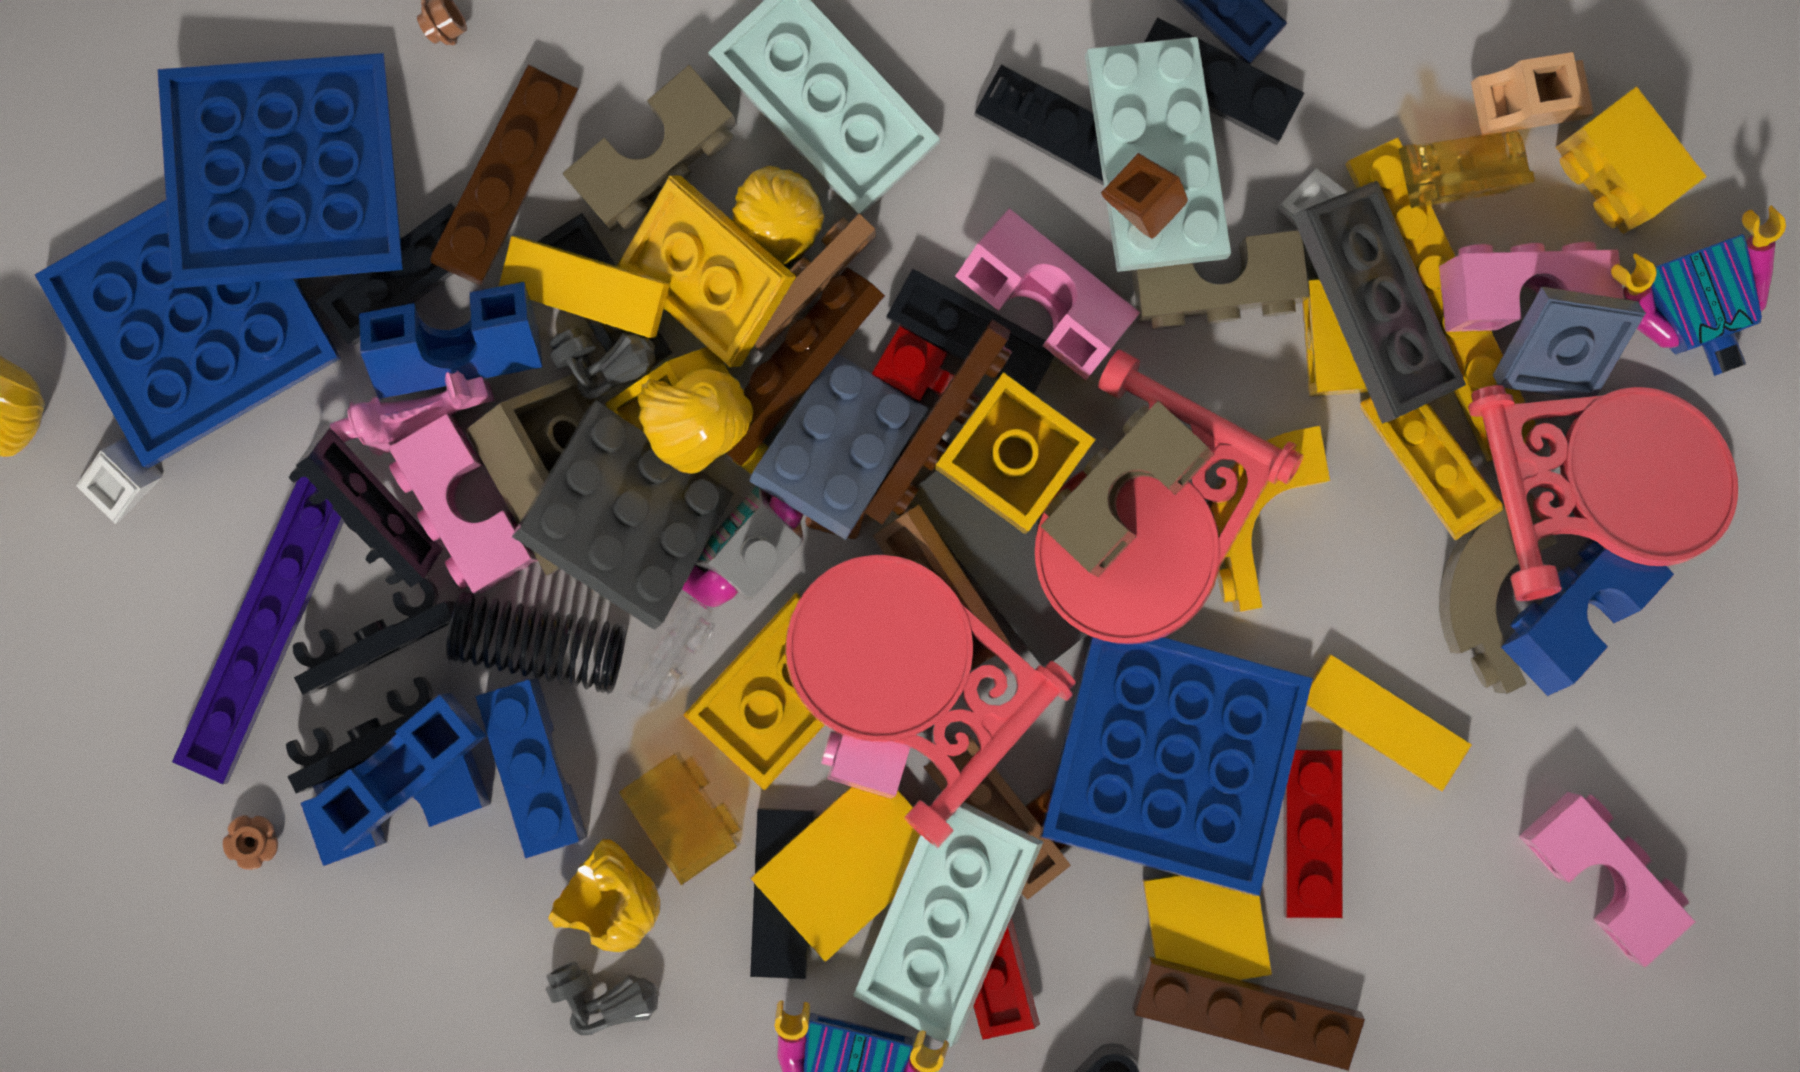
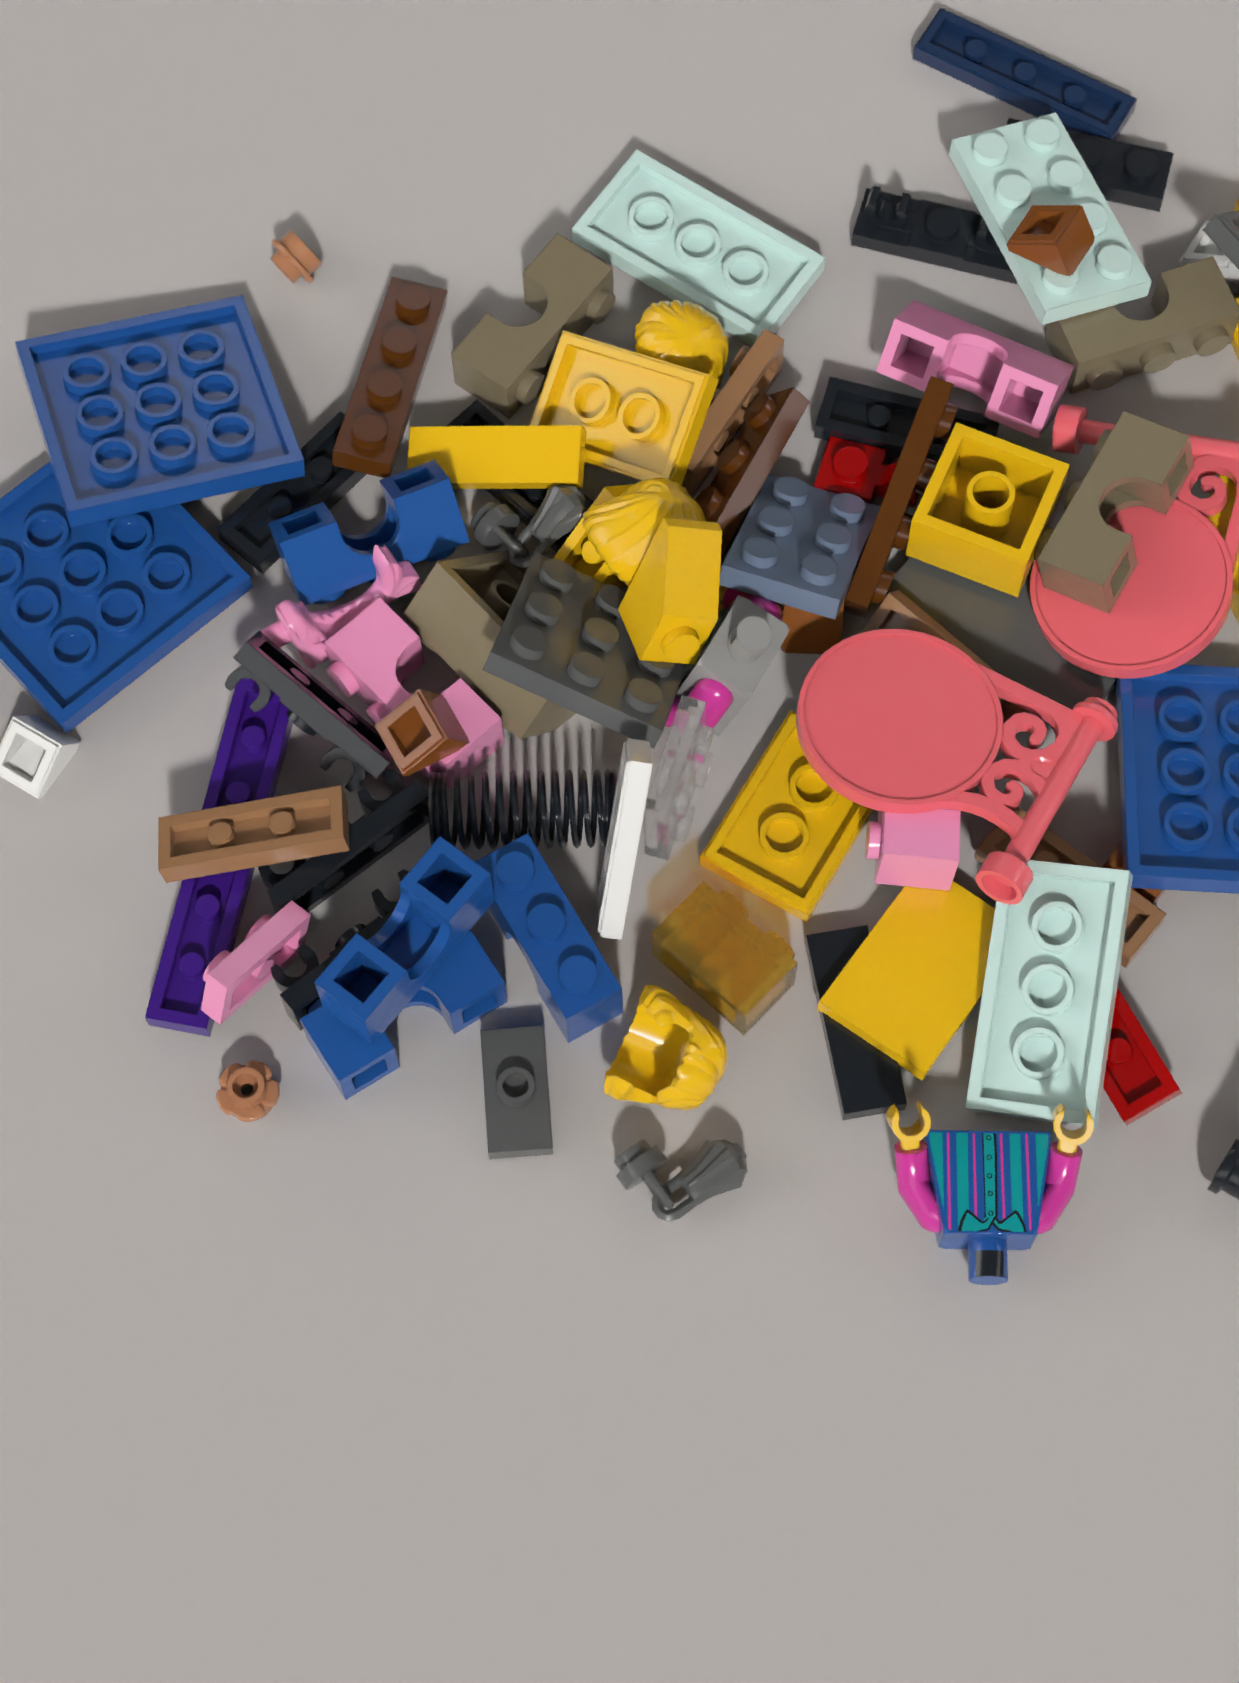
camera: 15 degrees left, 20 degrees down
(289, 626) = (253, 834): none -> medium nougat plate
(290, 720) = (243, 972): none -> bright pink plate
(457, 560) = (421, 731): none -> dark orange slope
(479, 892) = (516, 1092): none -> dark grey plate
(609, 707) = (623, 838): none -> white tile
(702, 494) = (675, 592): none -> yellow slope

